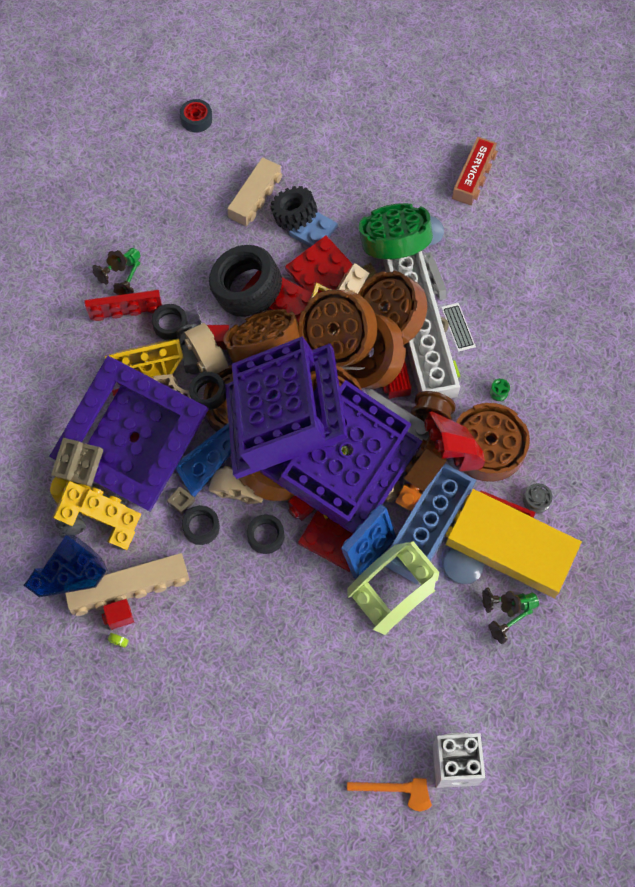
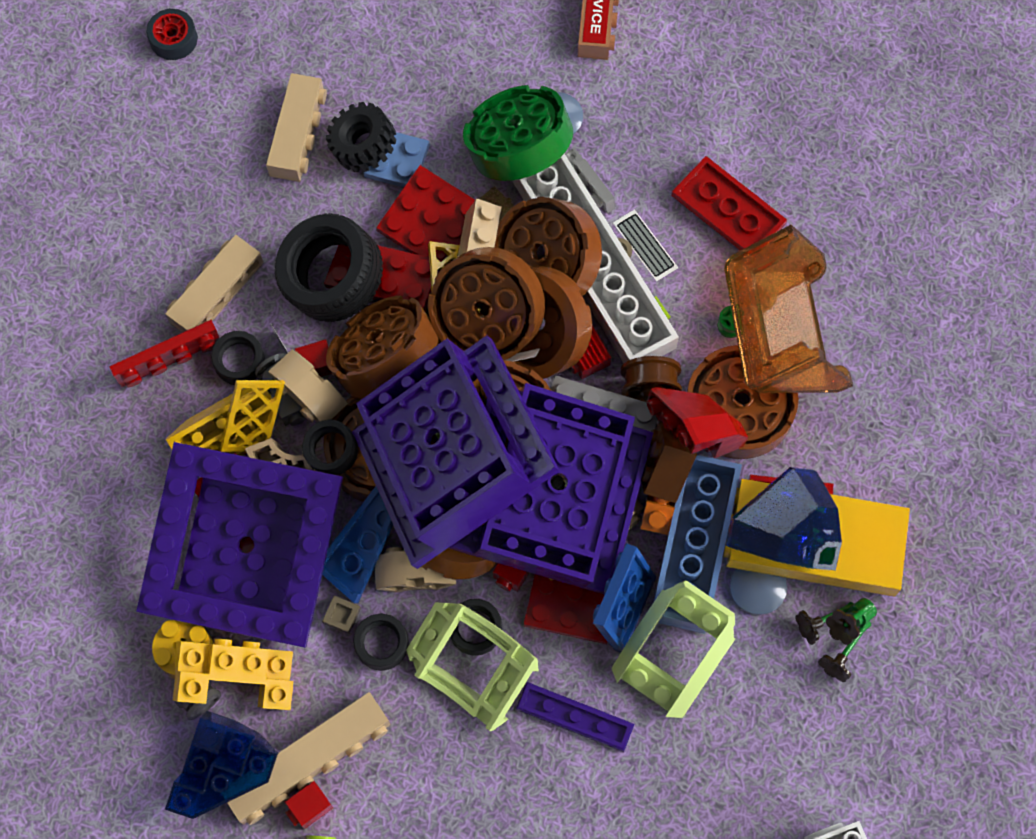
camera: 15 degrees left, 5 degrees up
(77, 462) = (181, 609): dark tan slope -> none
(116, 262) = (137, 293): dark brown plant -> none
(171, 272) = (215, 285): none -> tan brick
(174, 338) = (236, 404): none -> yellow window
(272, 573) = (505, 683): none -> yellowish green wedge
(313, 612) = (575, 716): none -> dark purple tile
(495, 523) = (790, 522): none -> clear blue brick
(521, 318) = (727, 205): none -> red plate
(532, 391) = (778, 316): none -> clear orange windscreen
(537, 498) = (830, 461): dark grey wheel -> none

